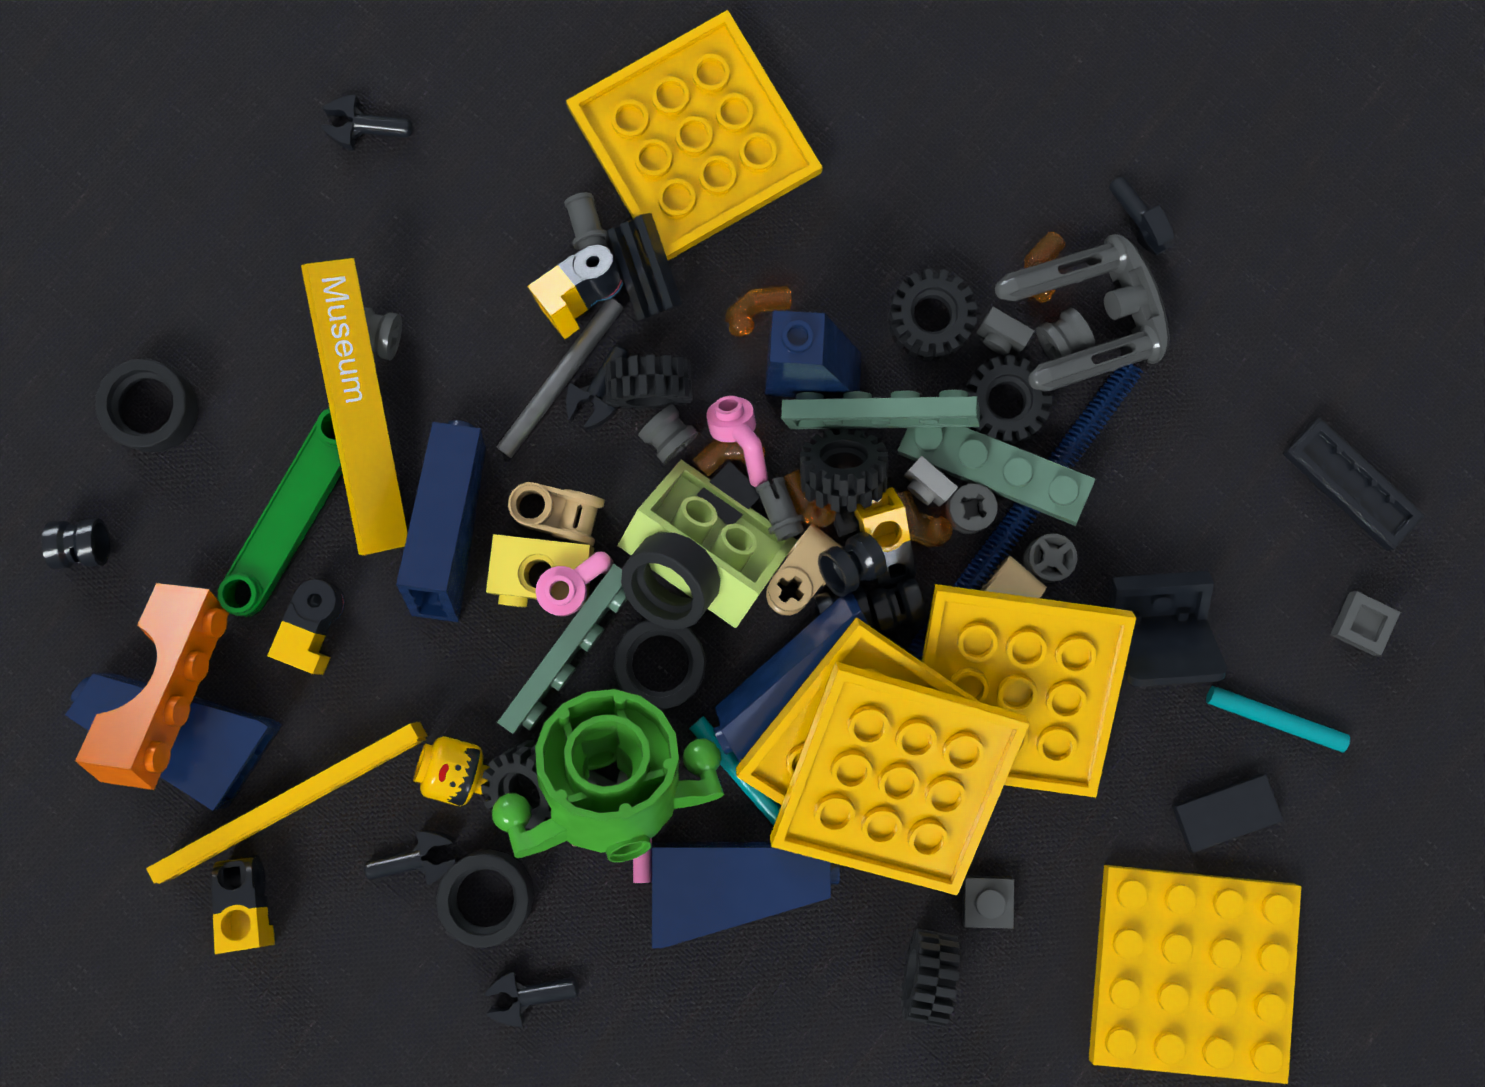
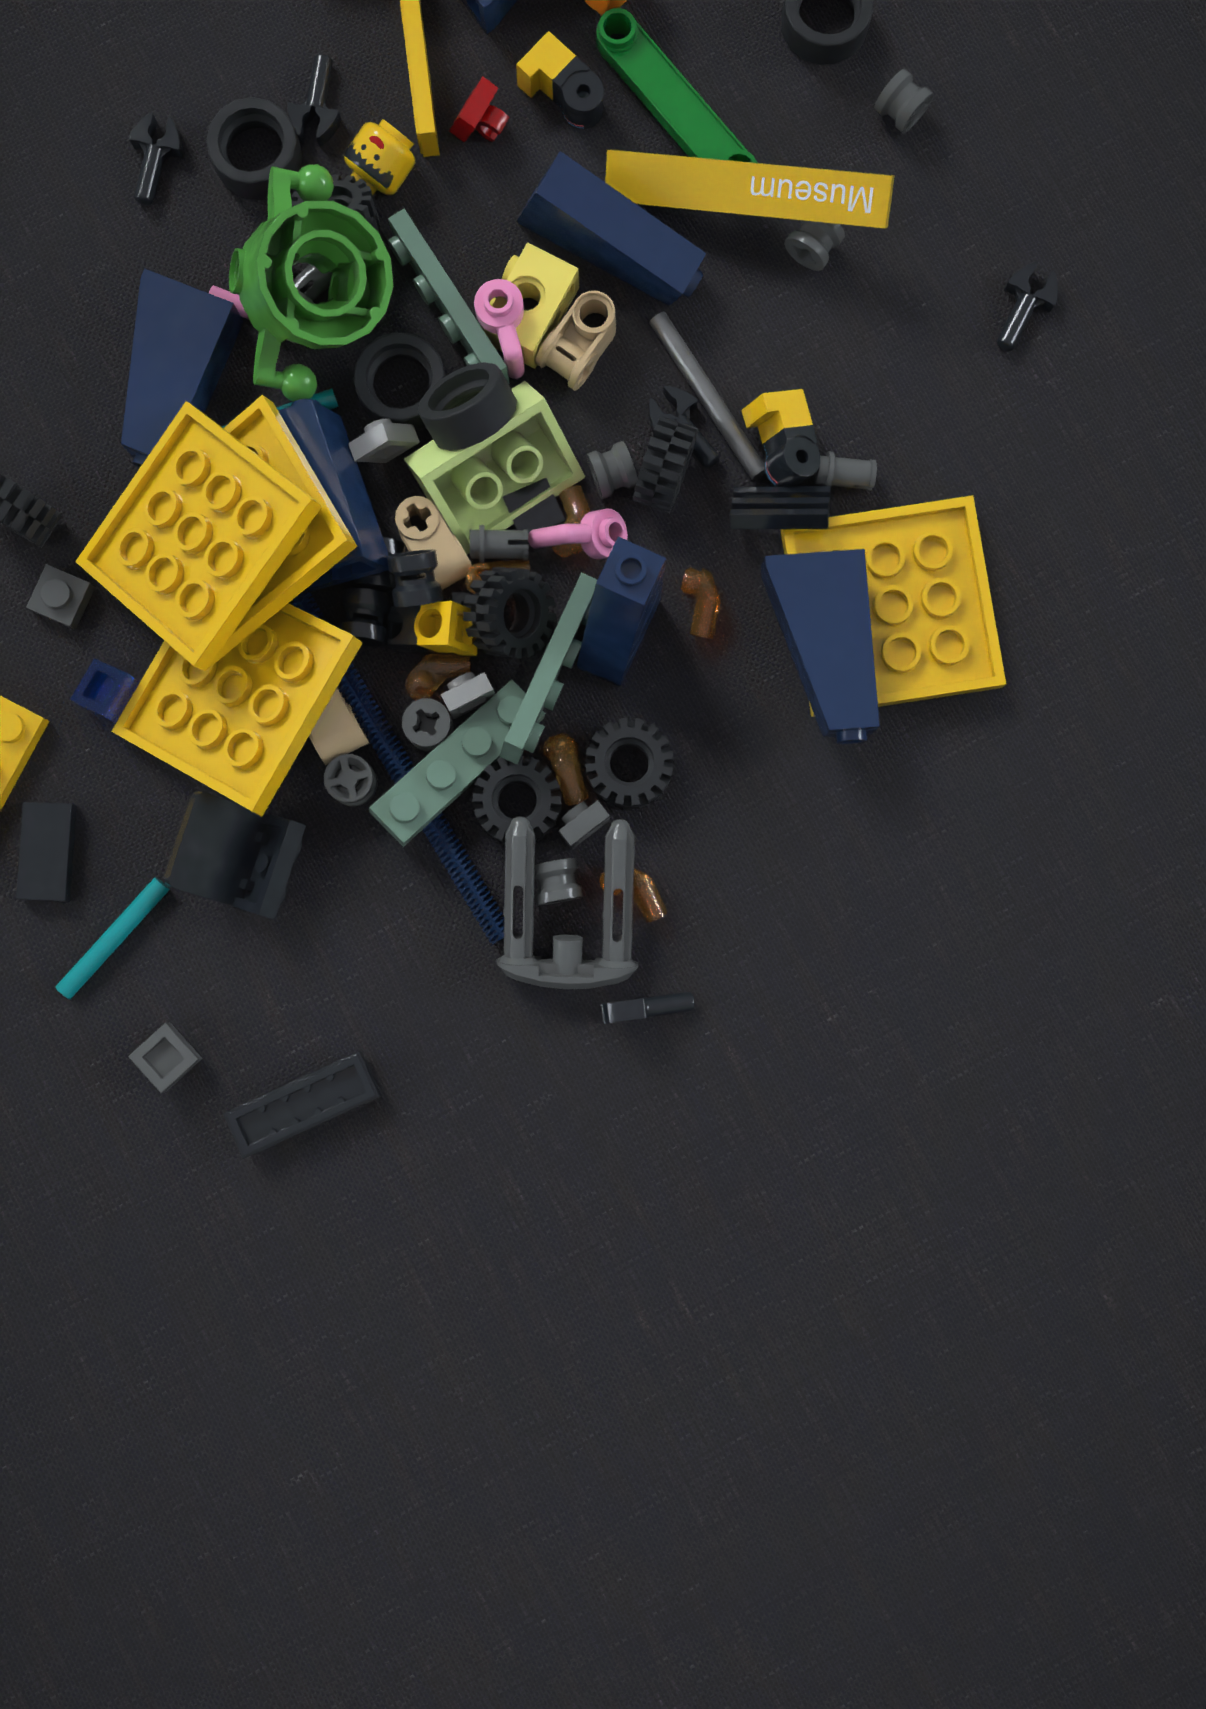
camera: 120 degrees right, 0 degrees up
(209, 301) = (903, 101): none -> dark grey wheel
(371, 696) = (479, 114): none -> red tile
(725, 654) = (383, 441): none -> light grey plate
(751, 172) = (827, 627): none -> dark blue slope
(958, 368) = (564, 758): none -> clear orange arm
(1061, 819) = (104, 690): none -> clear blue plate

